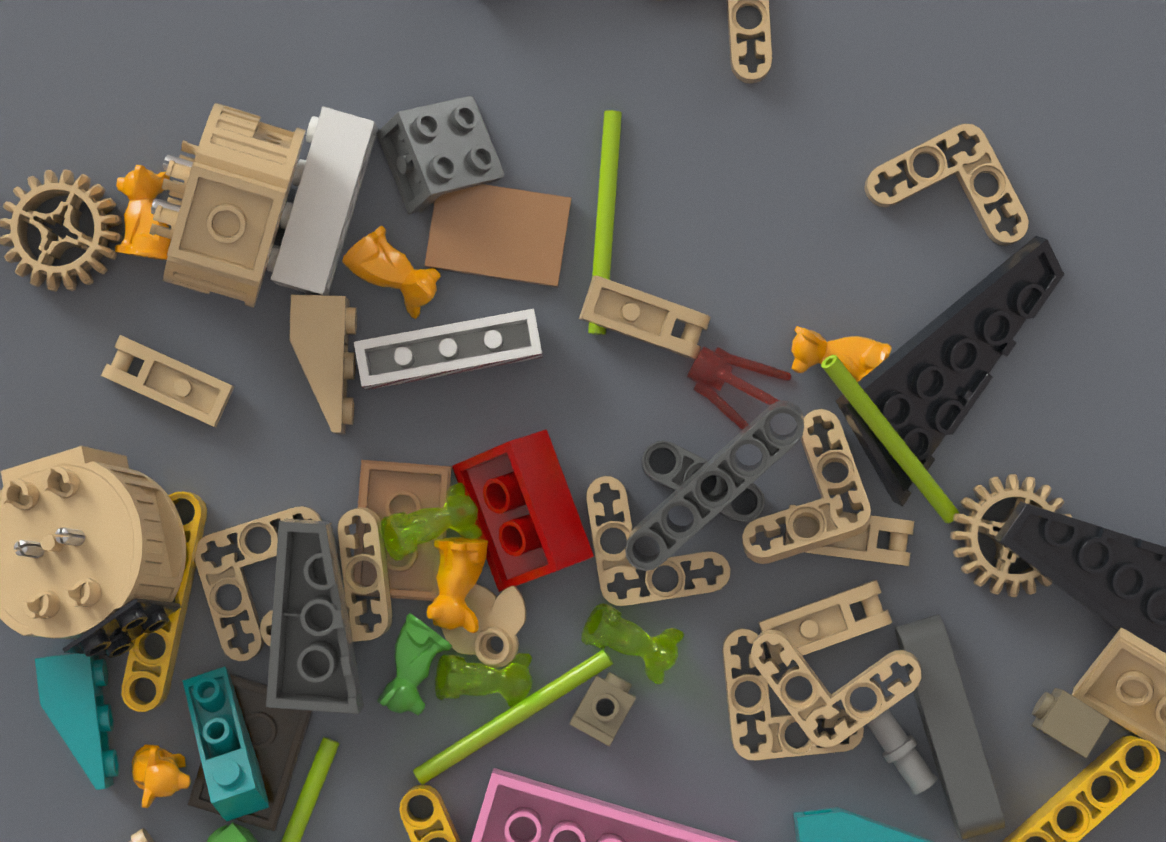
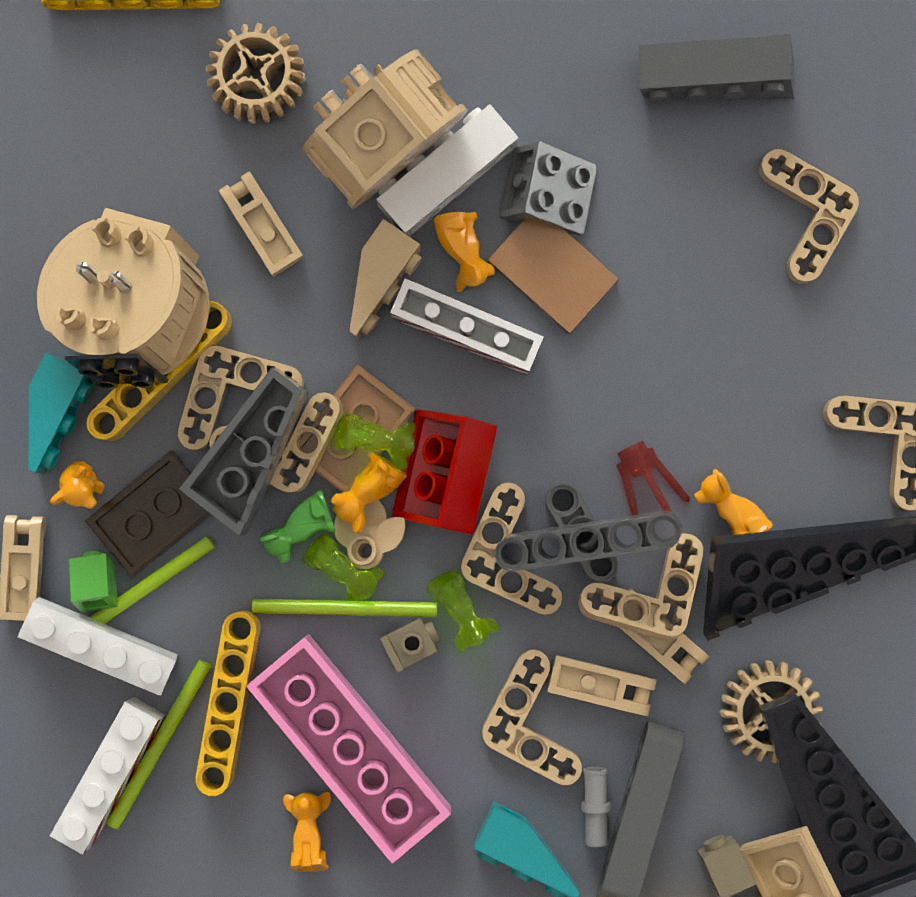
camera: 40 degrees right, 0 degrees up
(142, 188) = (327, 78): light orange animal -> none
(224, 745) = (135, 497): teal slope -> none
(606, 201) = (630, 311): lime piece -> none
(643, 316) = (615, 392): tan plate -> none
(820, 700) = (563, 737): tan beam -> none
(889, 438) = (731, 587): lime piece -> none

